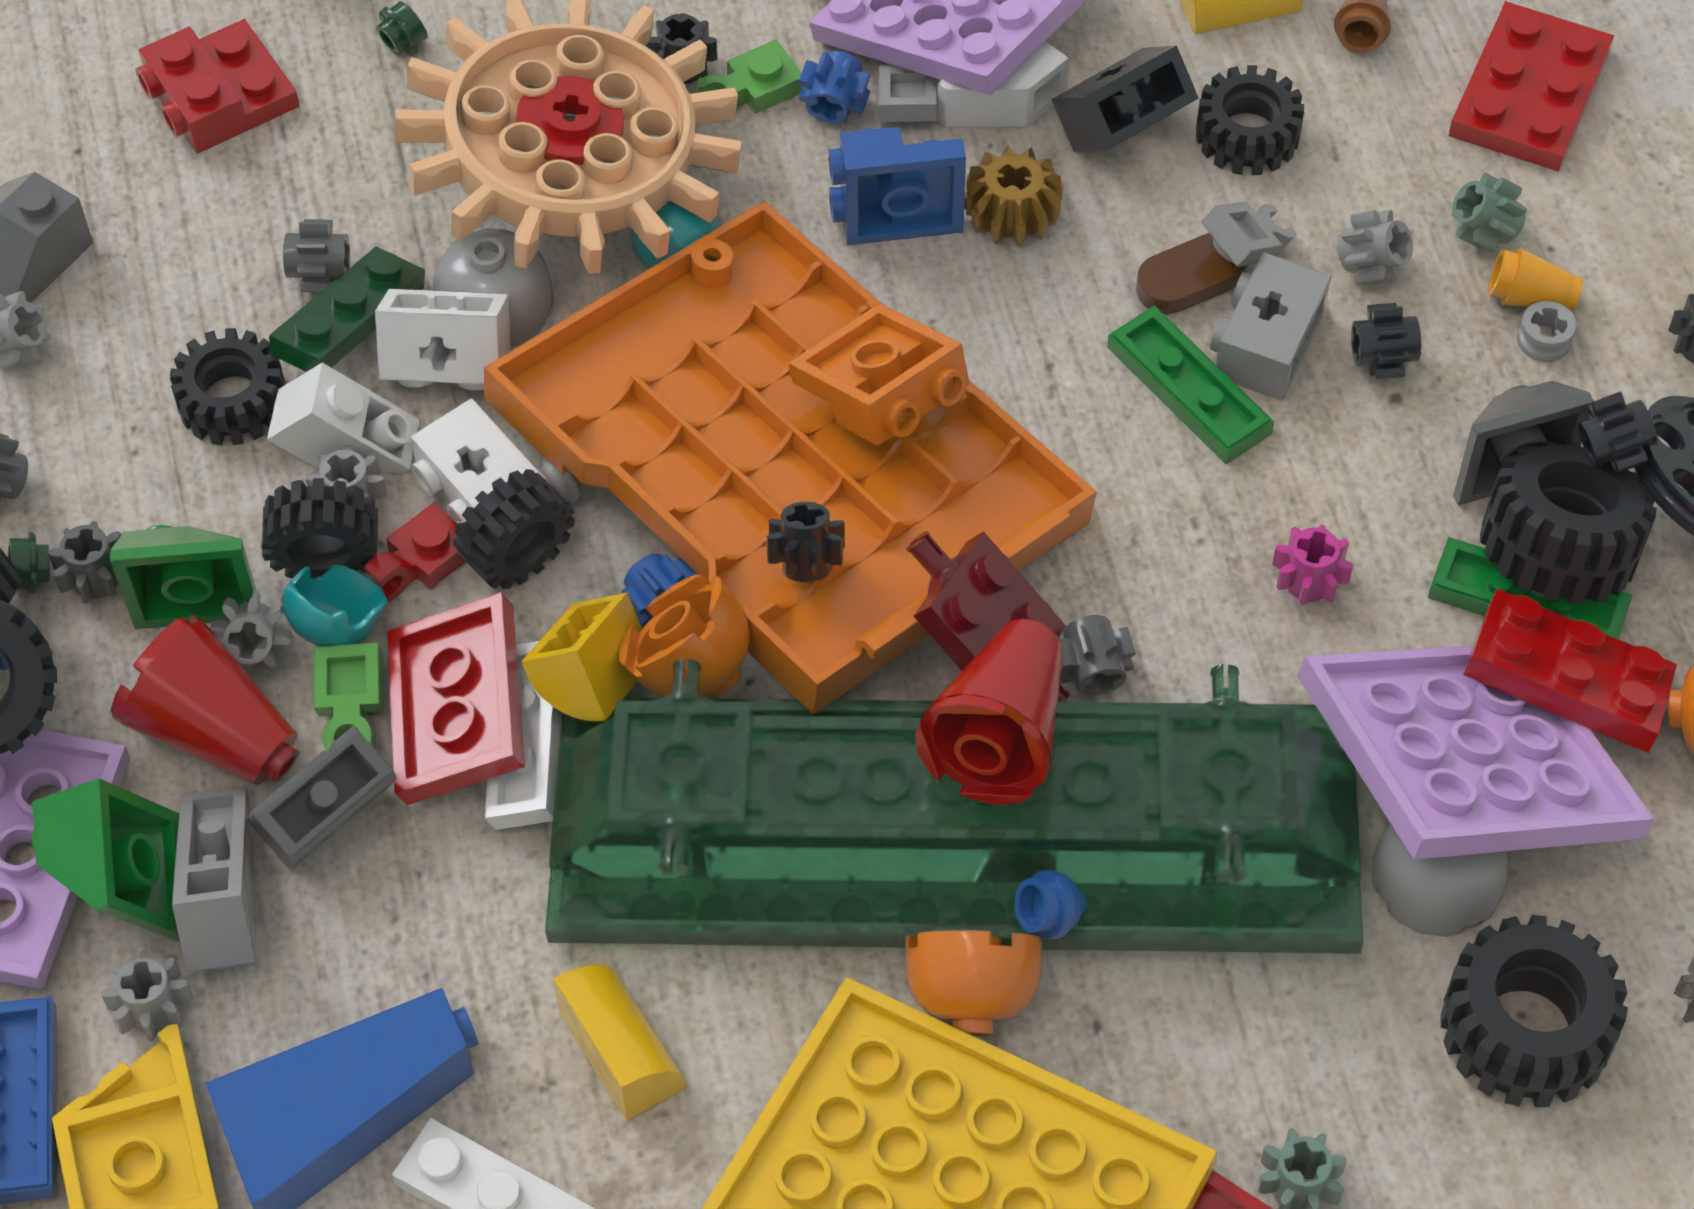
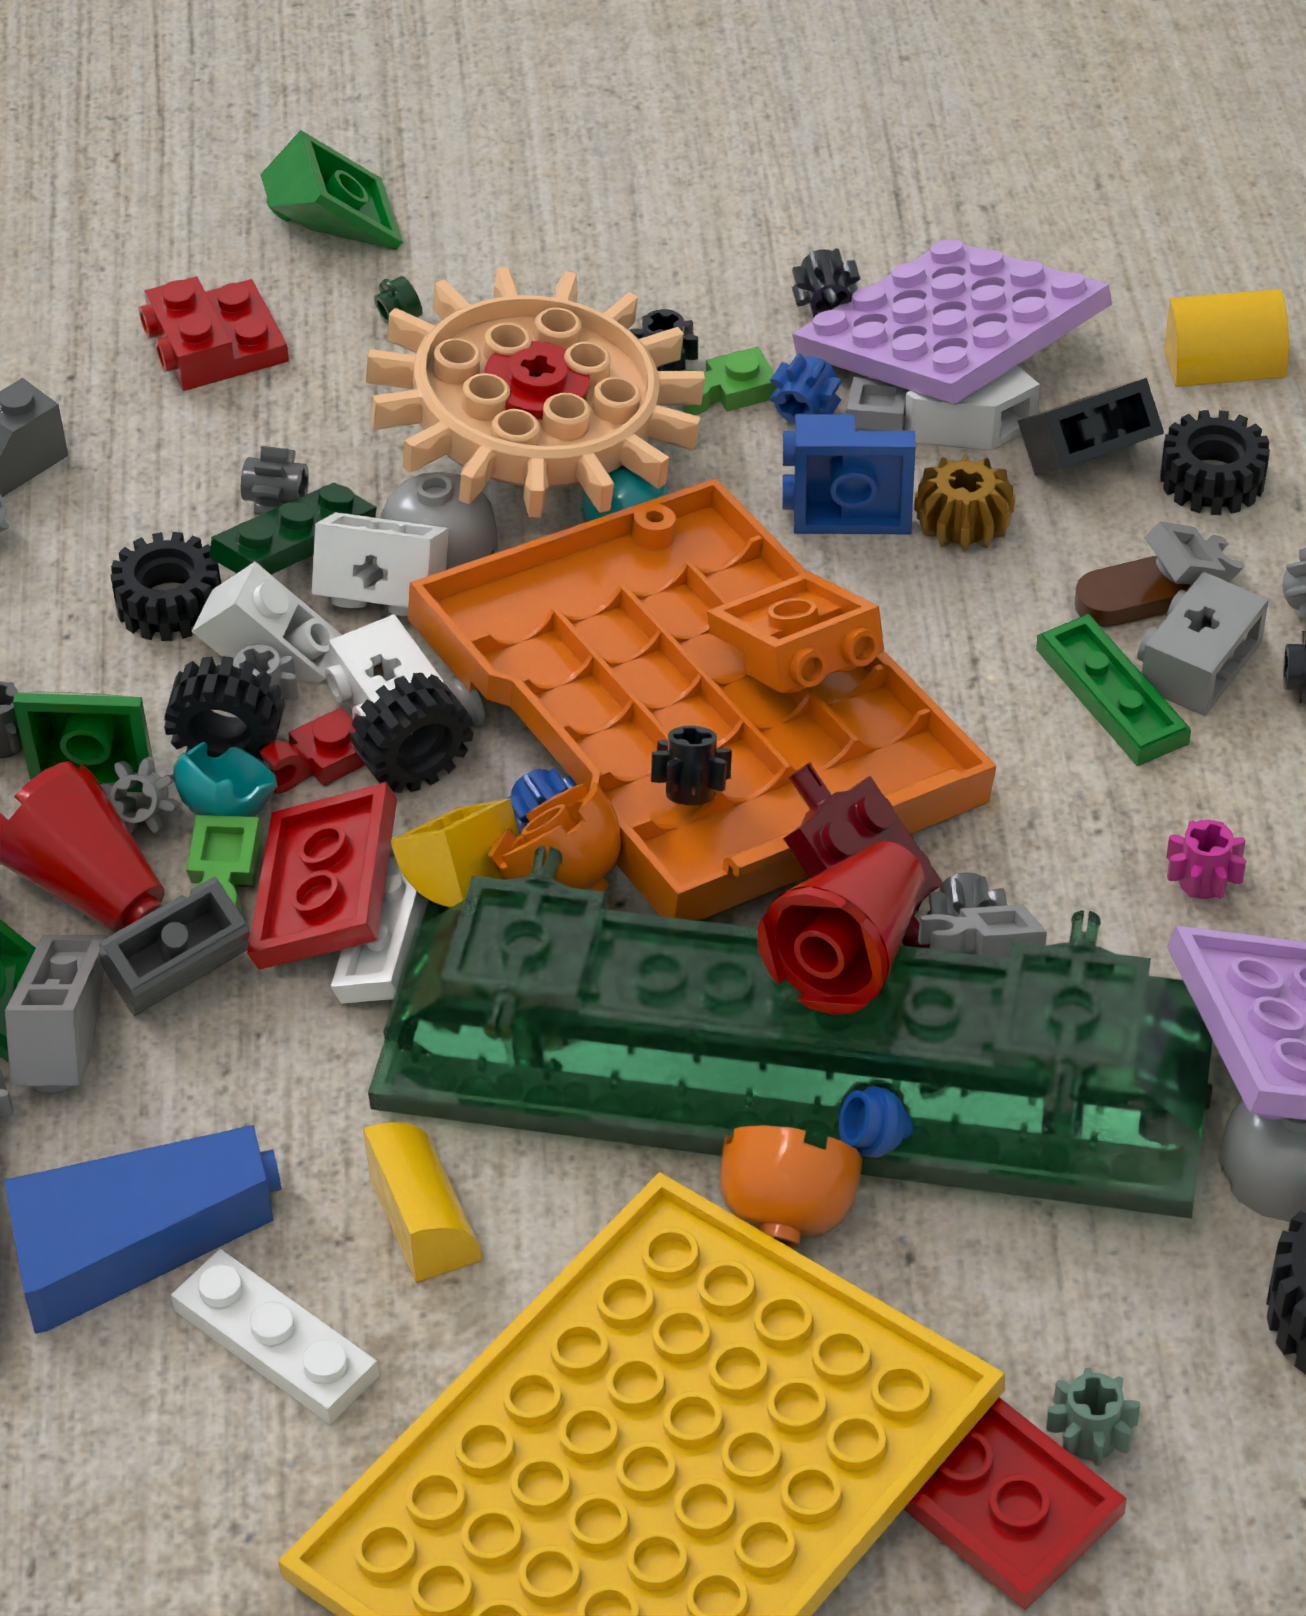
camera: 10 degrees right, 10 degrees down
(1127, 680) = (982, 930): none -> light grey plate

